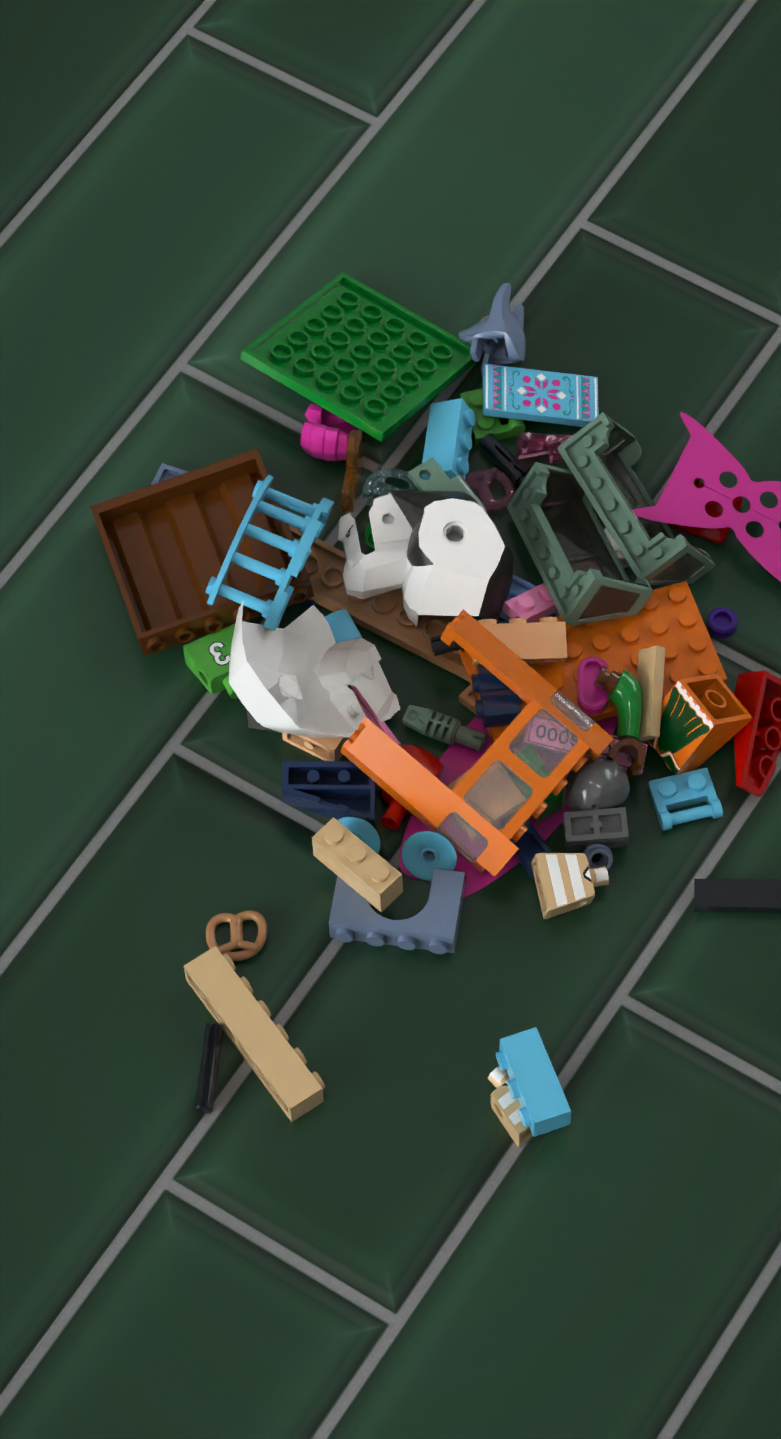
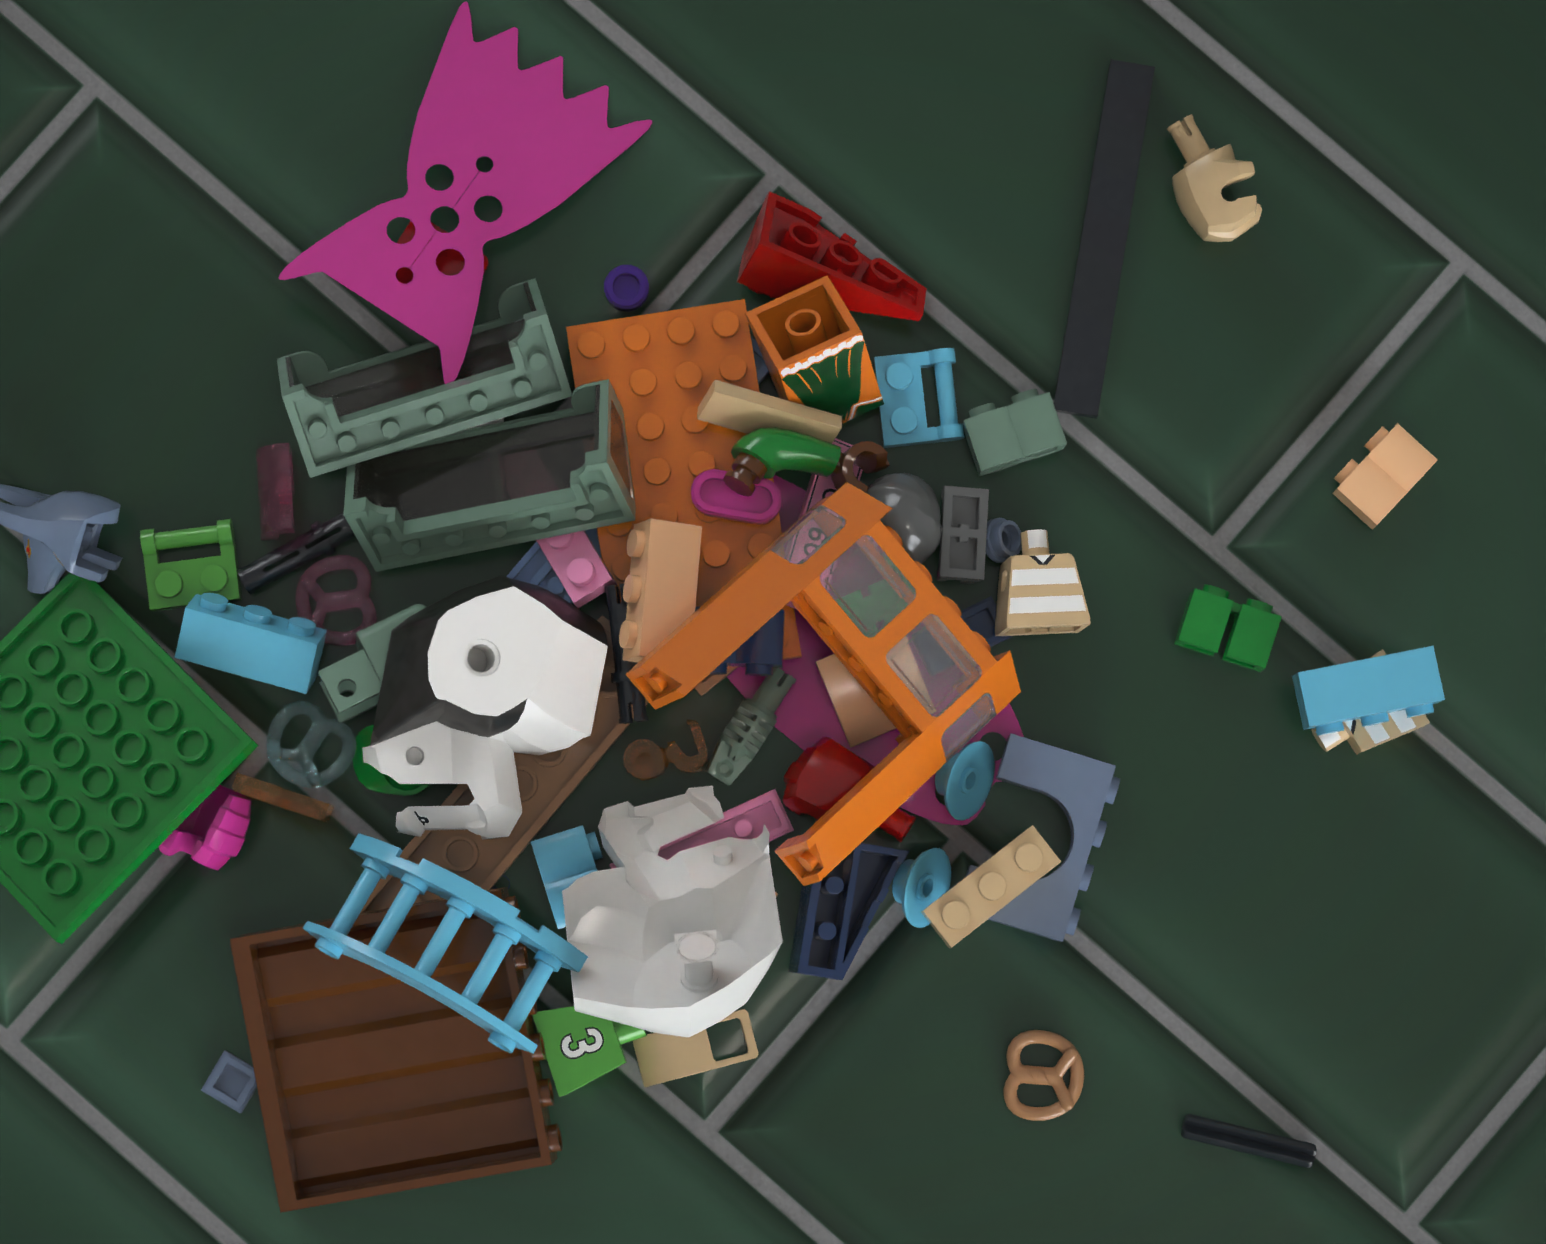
camera: 85 degrees left, 25 degrees up
(225, 722) = (674, 1057): none -> tan piece
(254, 1033) = (1210, 1070): tan brick -> none
(413, 681) = (648, 760): none -> clear orange leg
(539, 395) = (182, 486): medium azure tile -> none
(562, 1005) = (1250, 633): none -> green piece
(672, 855) = (1013, 432): none -> sand green brick
(690, 1090) = (1384, 475): none -> light nougat brick

